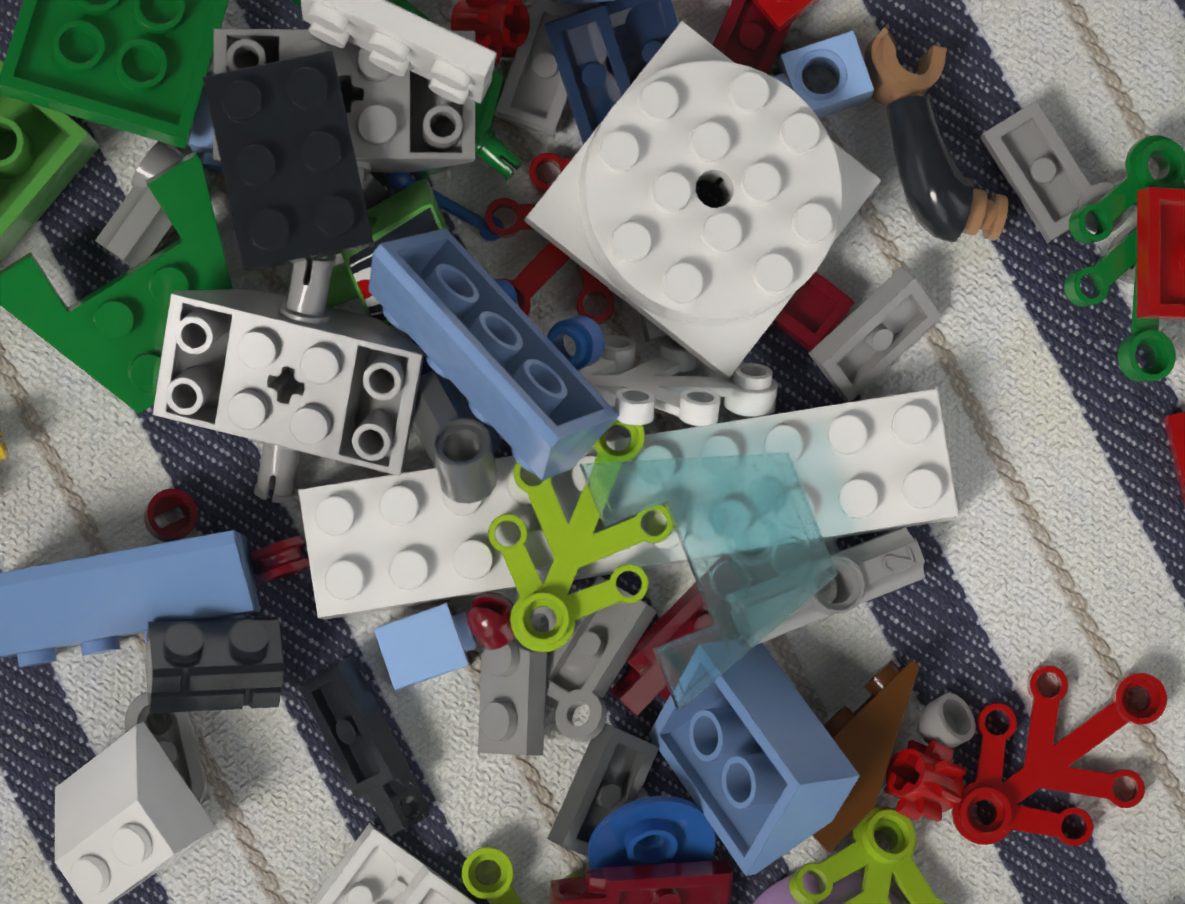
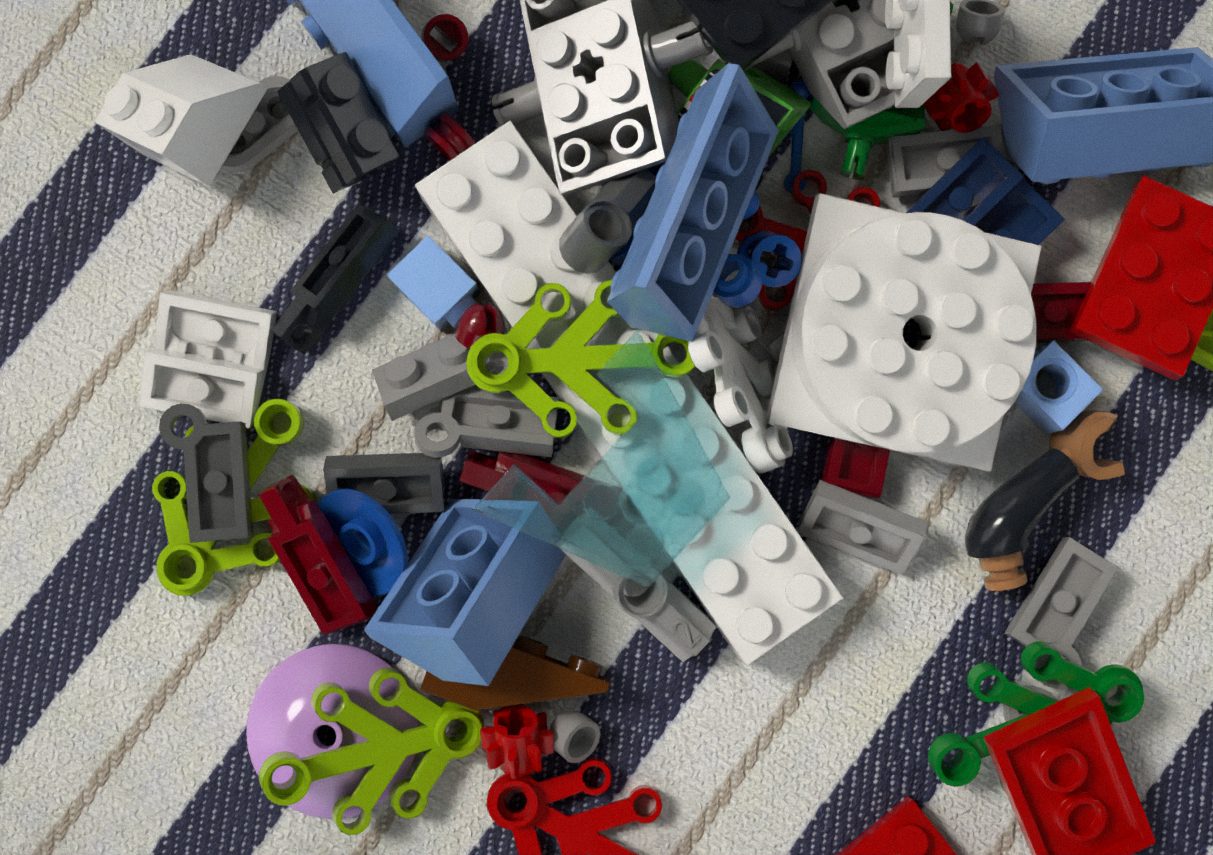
camera: 60 degrees right, 0 degrees up
(545, 291) = (777, 244): none -> blue bush

